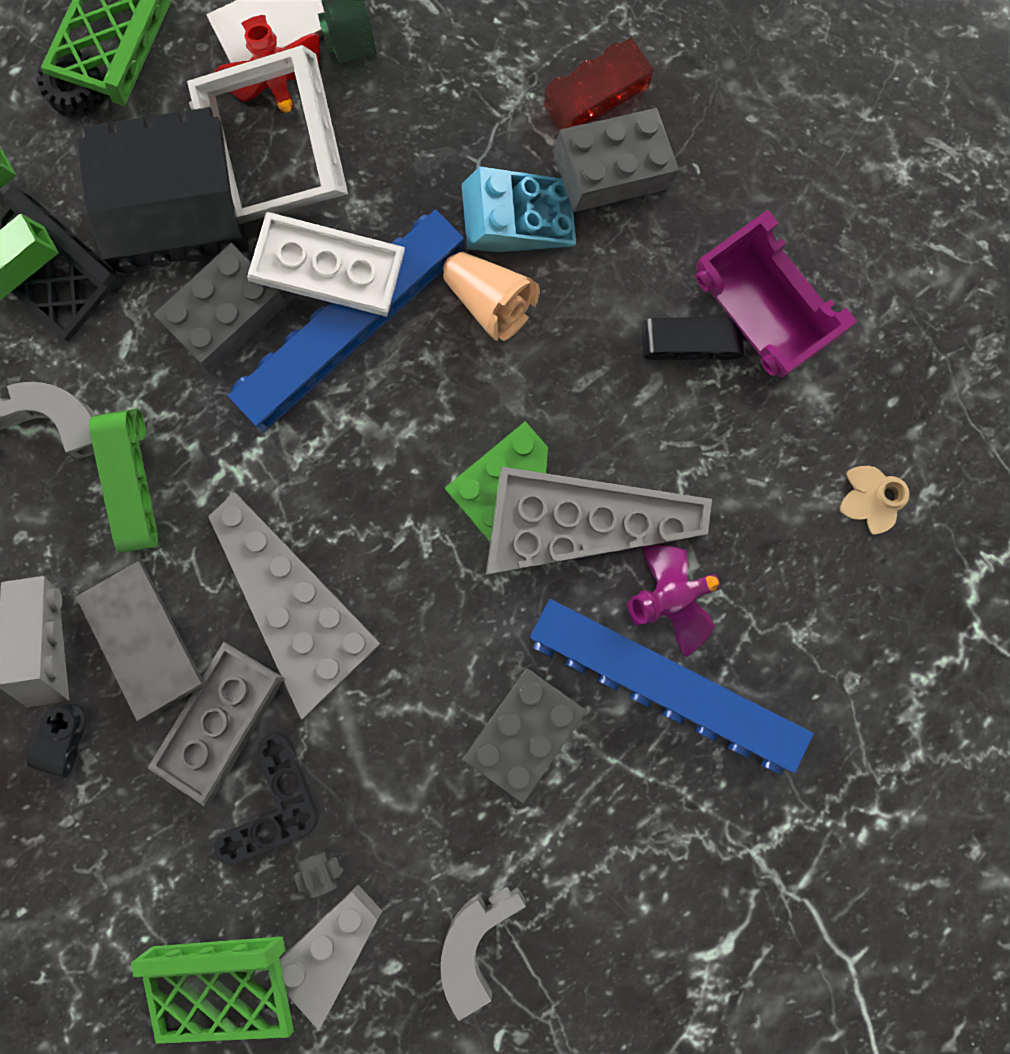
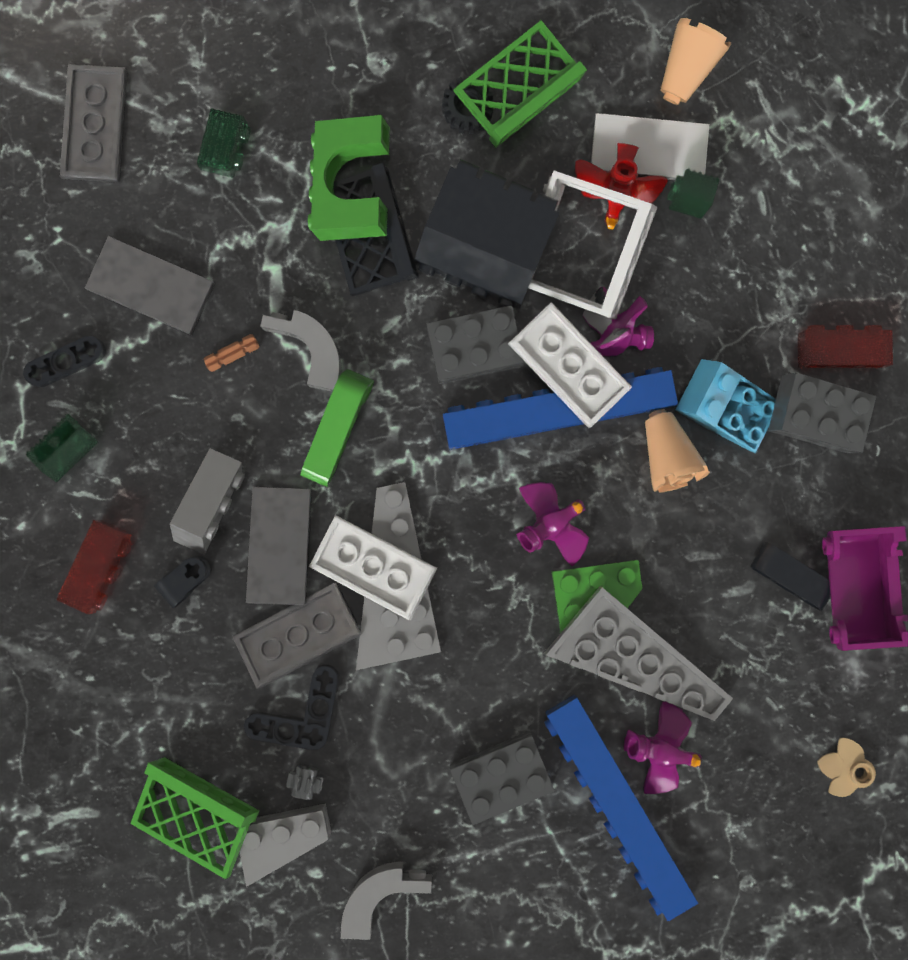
camera: 25 degrees right, 5 degrees up
(252, 599) = (373, 567): none -> white tile
(360, 207) = (619, 332): none -> magenta animal
(413, 437) = (552, 522): none -> magenta animal

